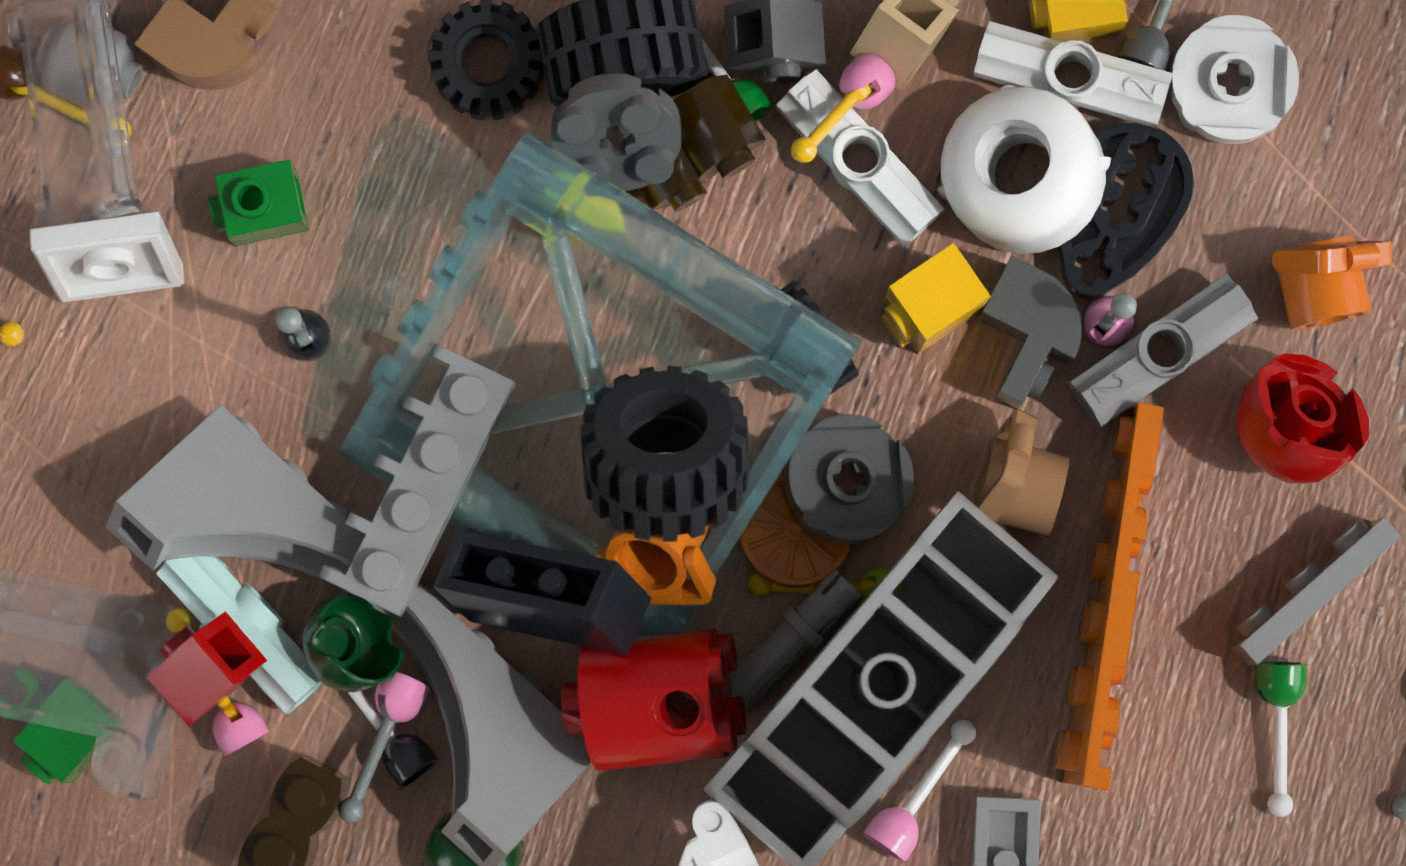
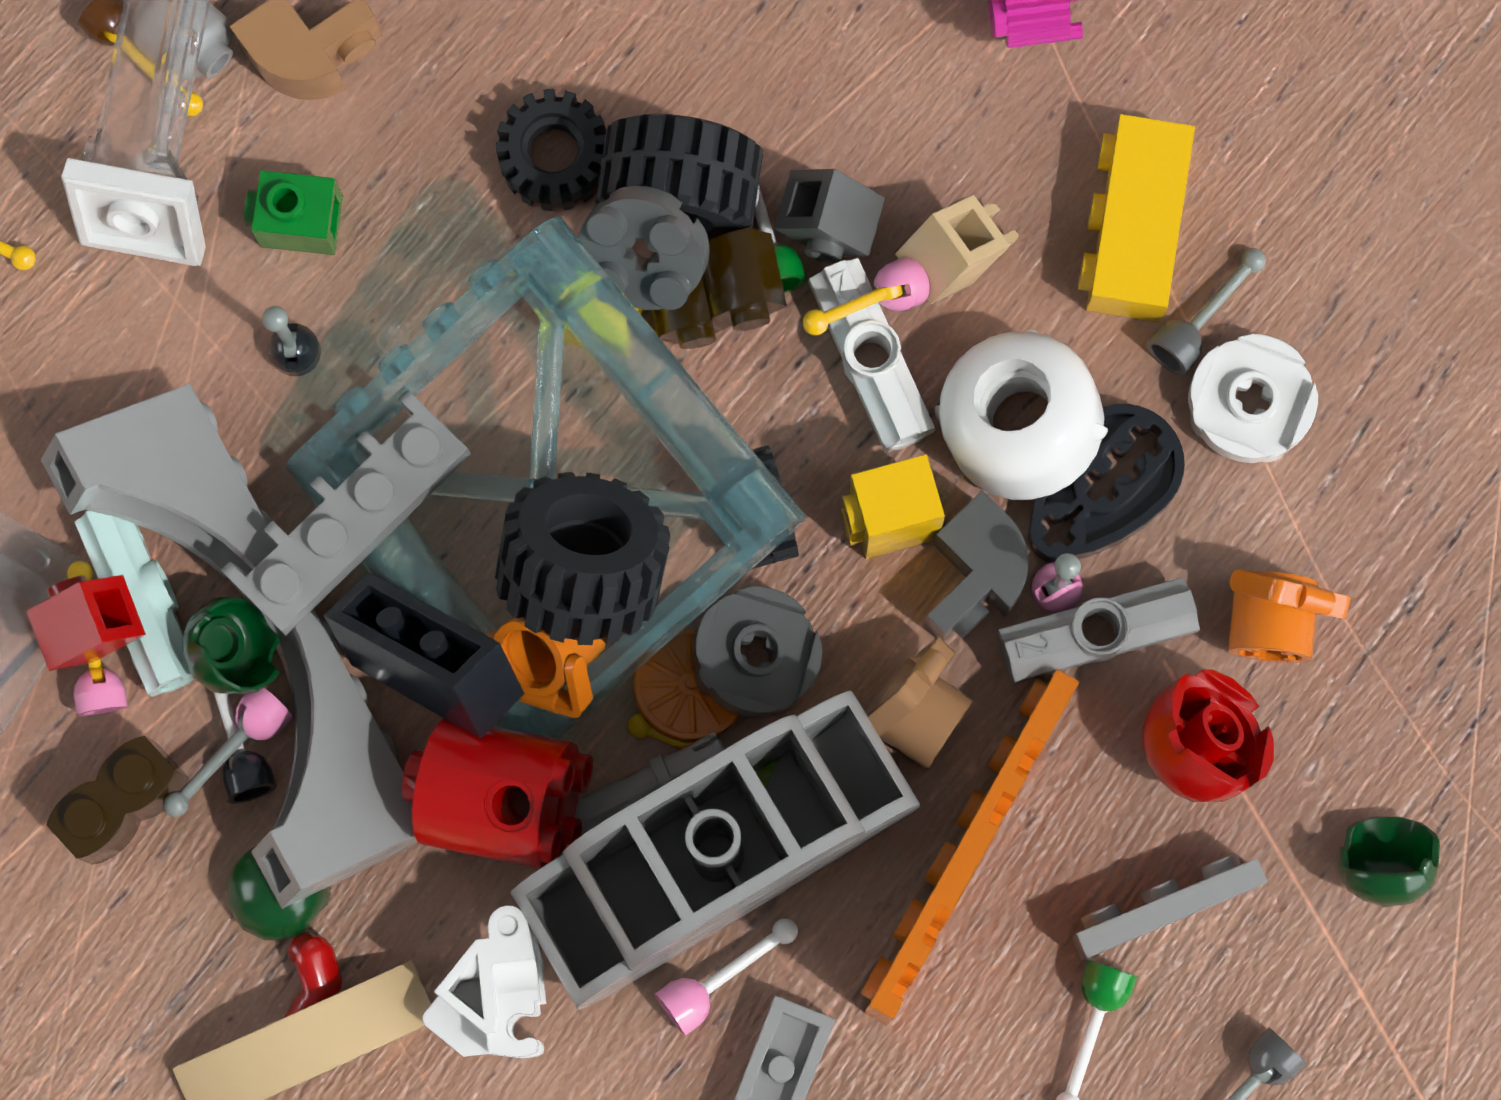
camera: 20 degrees right, 5 degrees down
(1115, 84) = (1132, 367): white piece -> none

